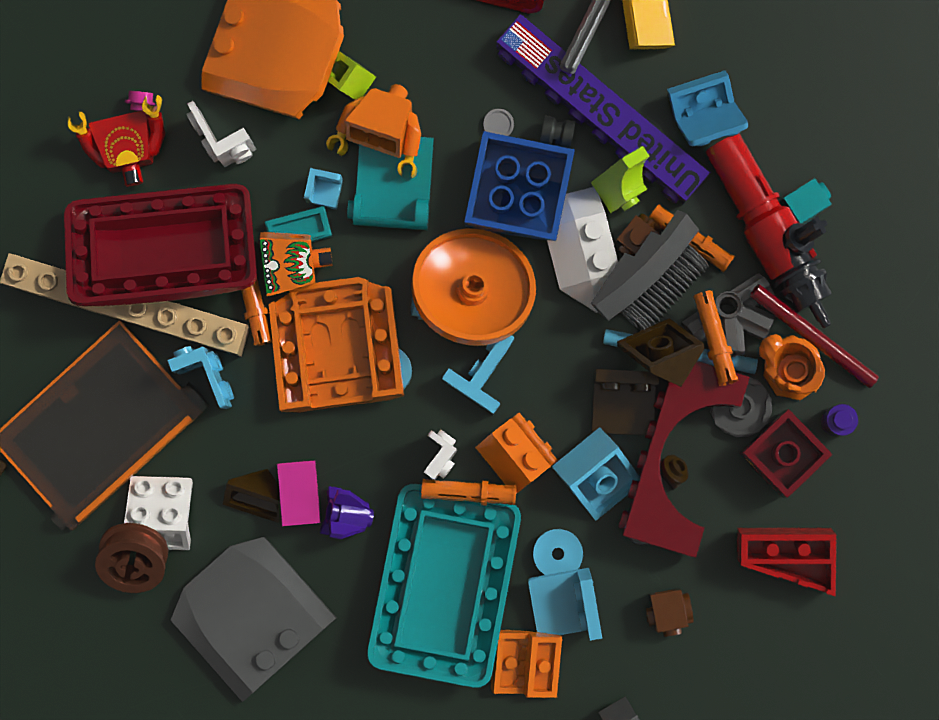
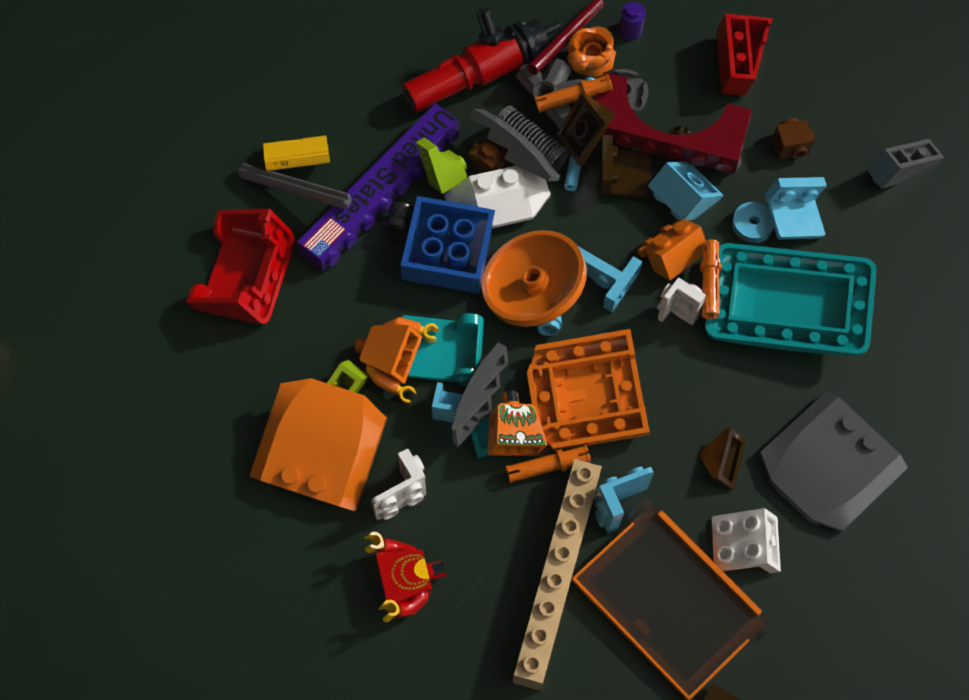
camera: 100 degrees left, 20 degrees down
(115, 552) = (792, 557): copper wheel -> none
(136, 98) = (365, 566): dark pink plate -> none
(159, 246) = (505, 535): dark red wedge -> none
(298, 493) = (720, 417): dark pink panel -> none
(316, 215) = (477, 396): none -> dark grey slope
(345, 514) = (735, 382): dark purple brick -> none
(499, 122) = (389, 269): light grey piece -> none
(527, 664) = (847, 236): orange slope -> none
(702, 244) = (480, 132): orange pin -> none
(706, 109) = (385, 109): dark azure bracket -> none
(785, 453) = (661, 54): dark red brick -> none
(808, 200) = (454, 38): teal brick -> none

